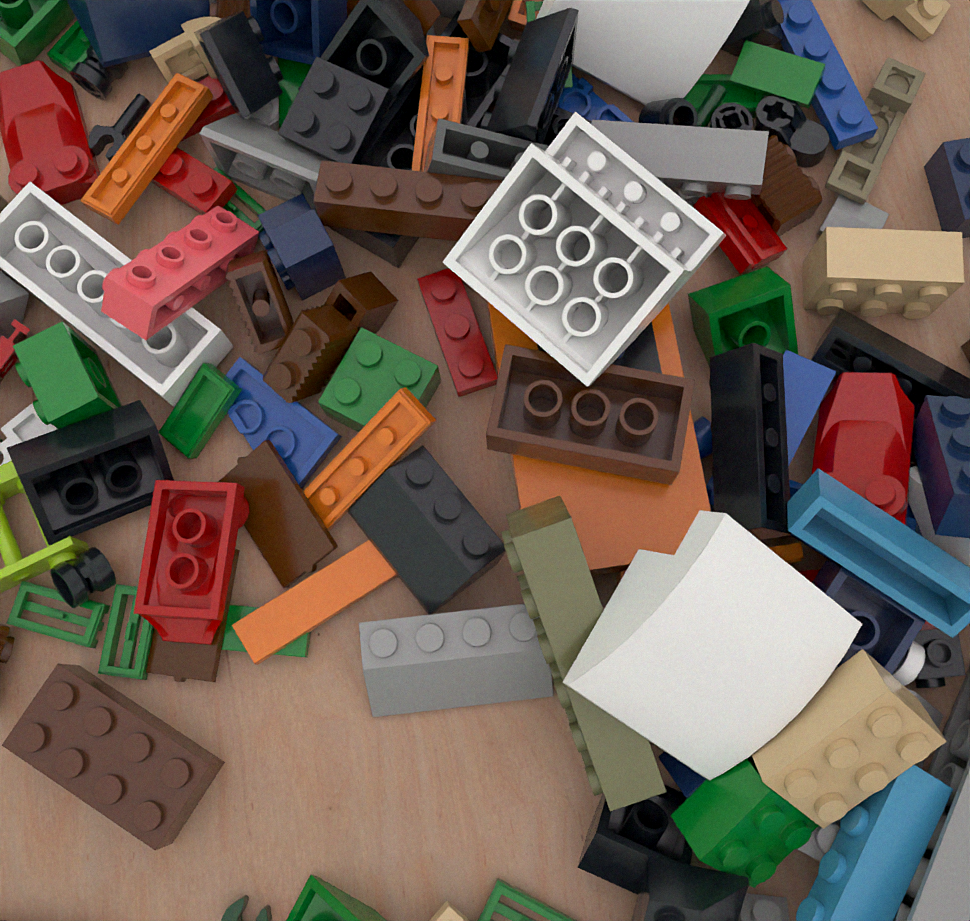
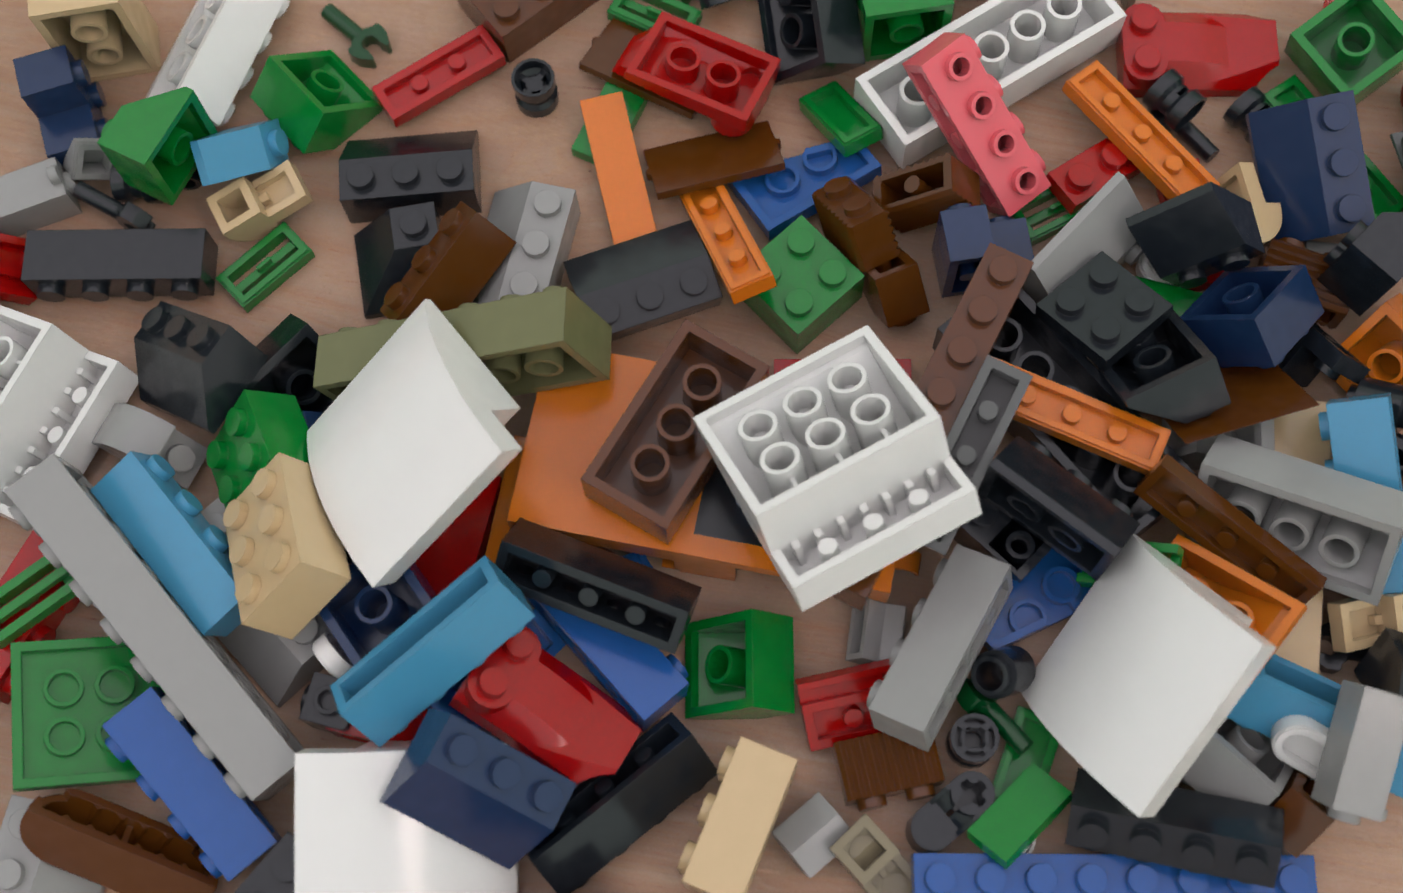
camera: 110 degrees right, 5 degrees down
(103, 129) = (1174, 100): none -> black wheel
(241, 715) = (535, 87): none -> black wheel
(264, 826) = (439, 75): none -> red plate
(381, 811) = (409, 172): none -> black slope
(481, 778) = (388, 247): none -> black slope
(490, 715) = (451, 266): none -> reddish brown brick

